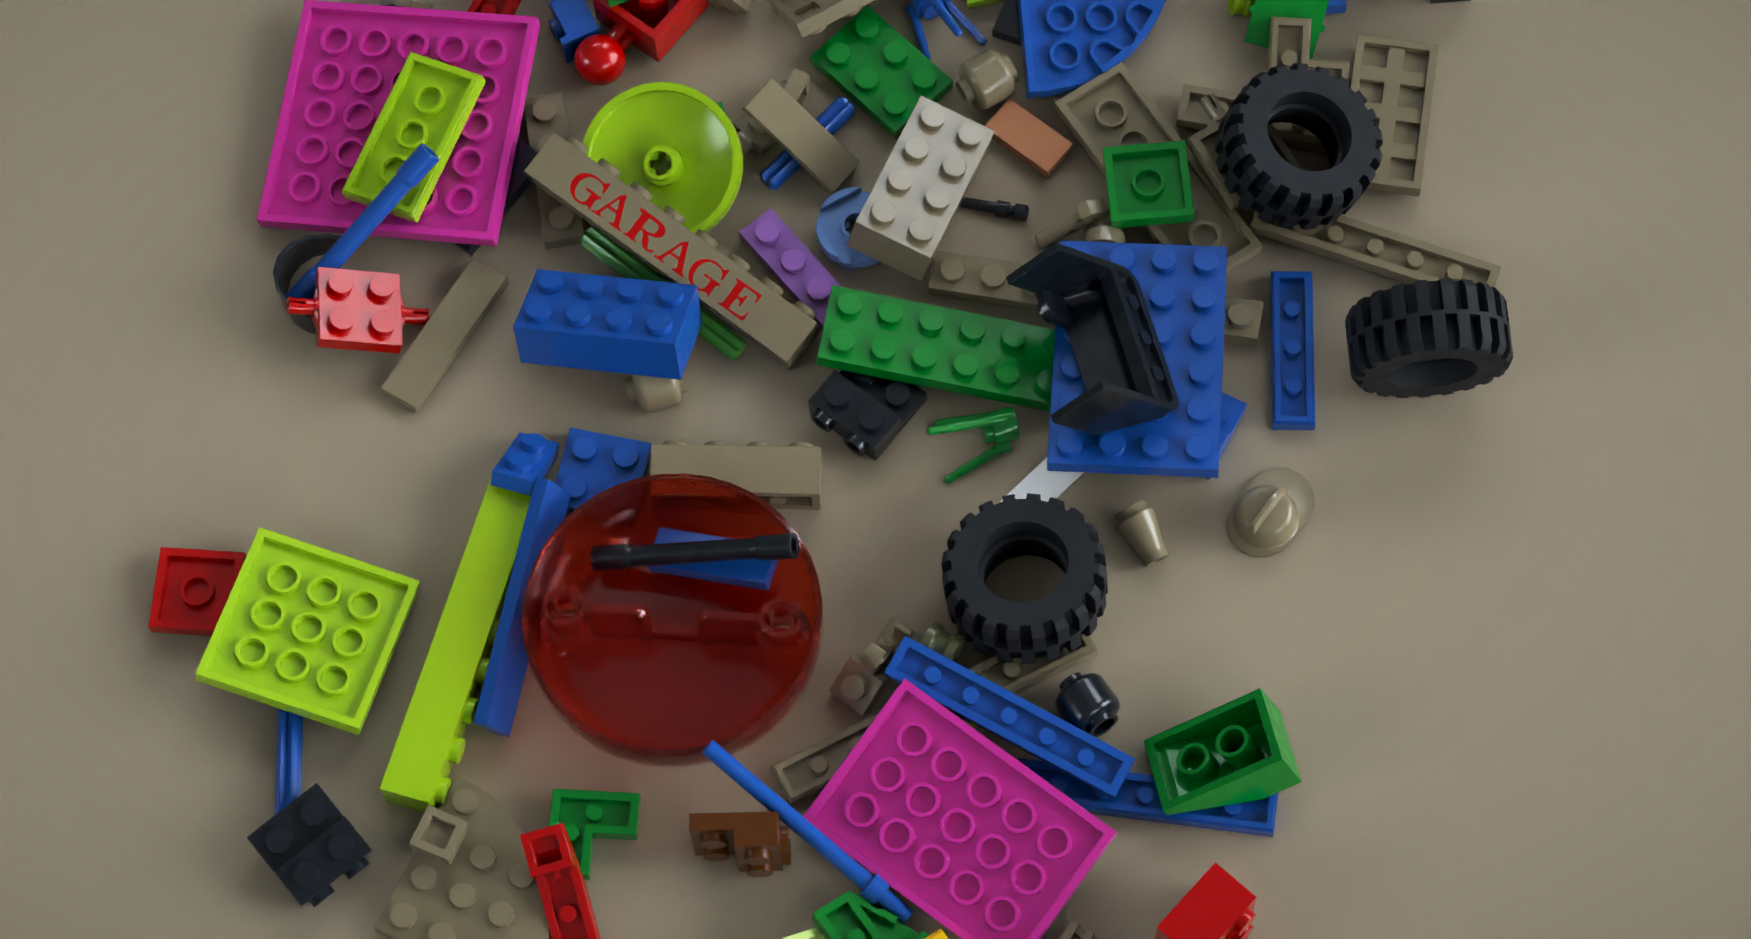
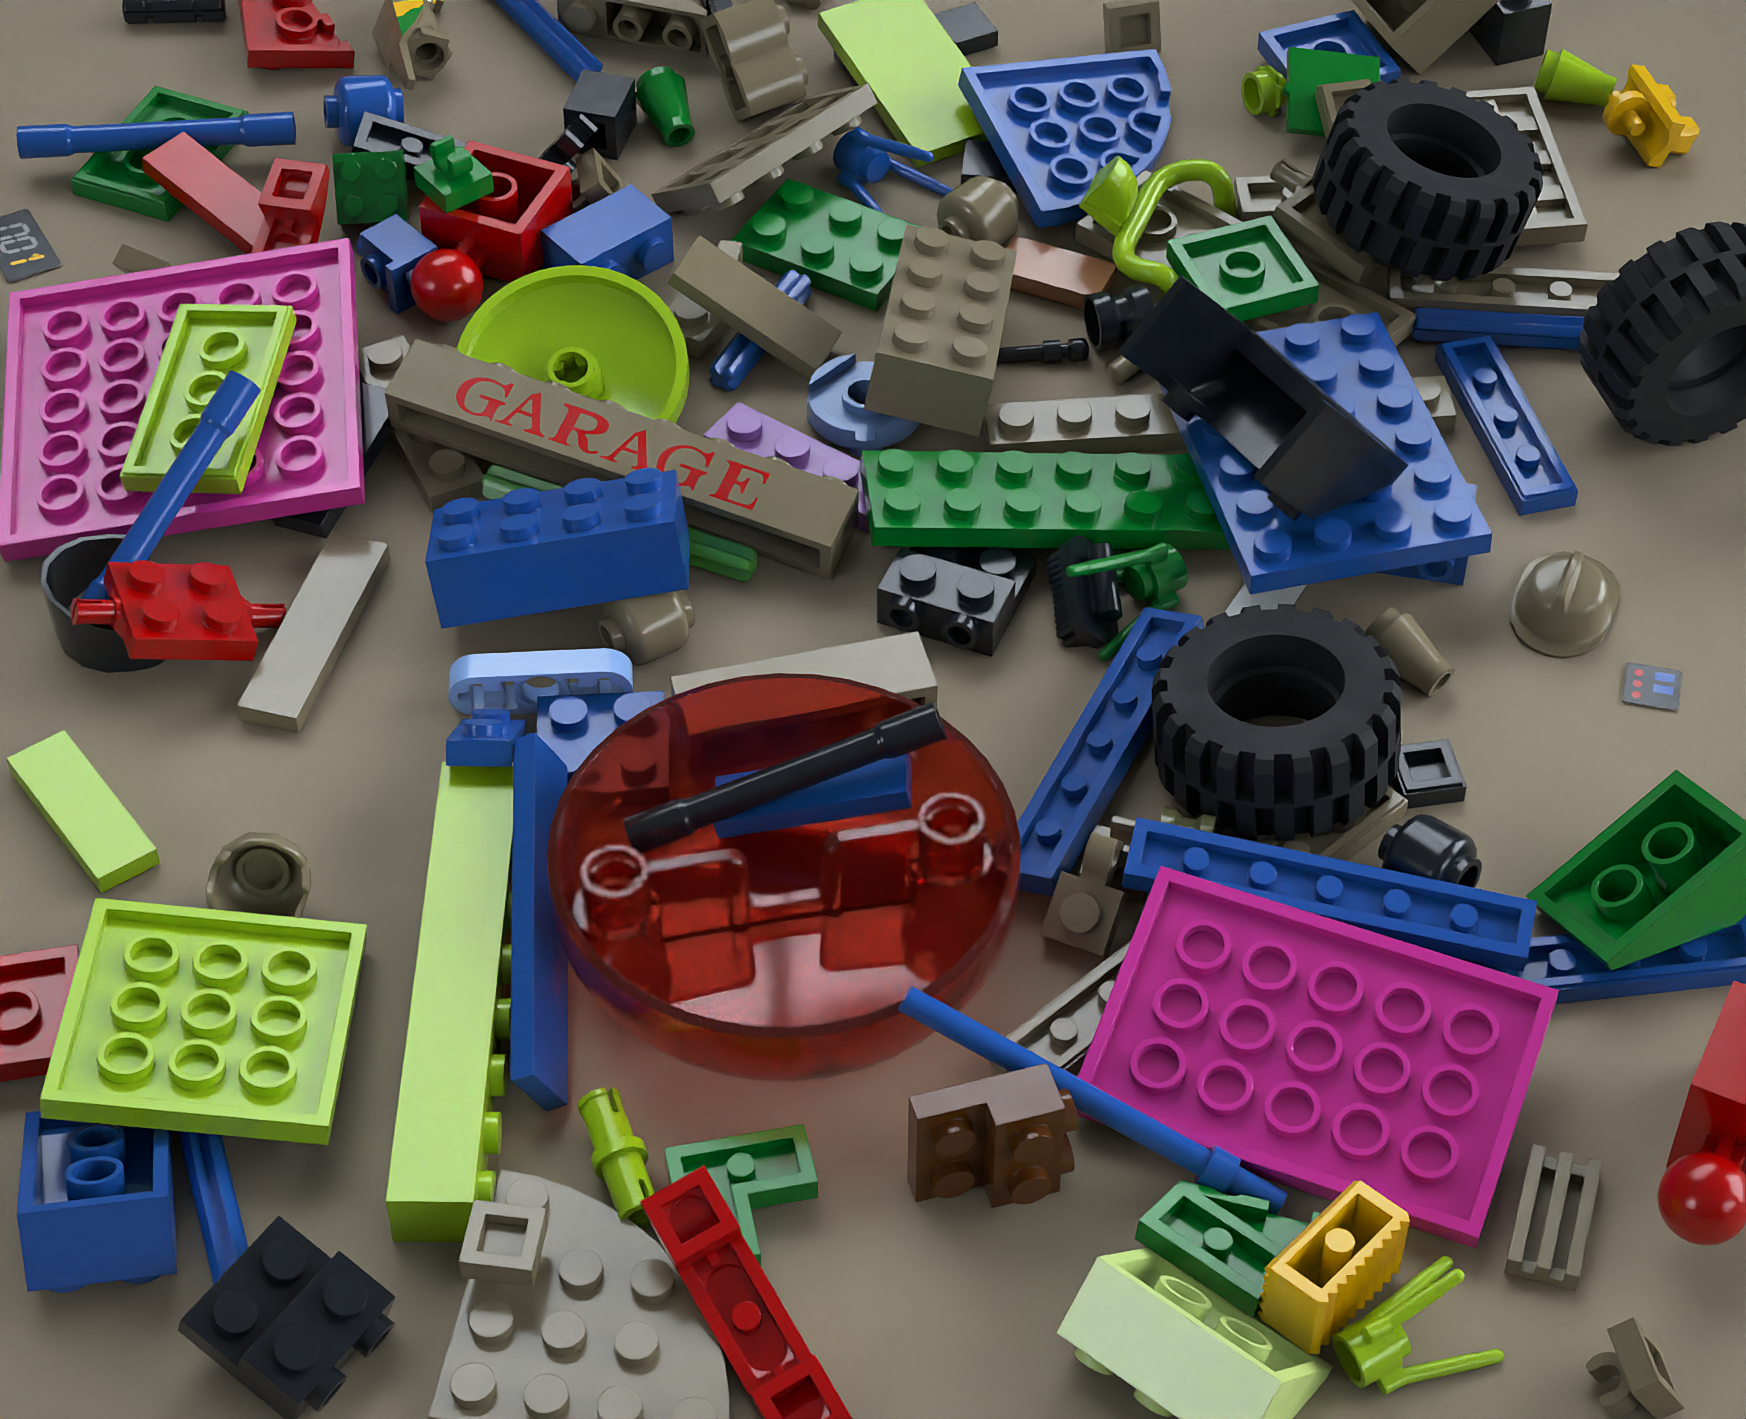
camera: 20 degrees left, 20 degrees down
(217, 741) = (95, 1204): none -> blue slope
(270, 444) = (83, 811): none -> lime tile
(361, 534) = (259, 876): none -> dark tan hair
(527, 785) = (617, 1153): none -> lime pin
(563, 414) = (560, 665): none -> light blue beam
(722, 44) = (615, 233): none -> brick
(911, 561) = (1096, 753): none -> blue plate
(948, 450) = (1084, 604): none -> black piece
(1055, 195) = (1115, 316): none -> black wheel
(1087, 106) = (1125, 213): none -> lime piece
(1120, 629) = (1429, 774): none -> black tile
(1300, 594) = (1652, 686): none -> sticker
(1327, 266) = (1506, 328): none -> blue axle
(1474, 40) = (1572, 80): none -> lime cone
(1508, 89) = (1649, 118): none -> yellow hips

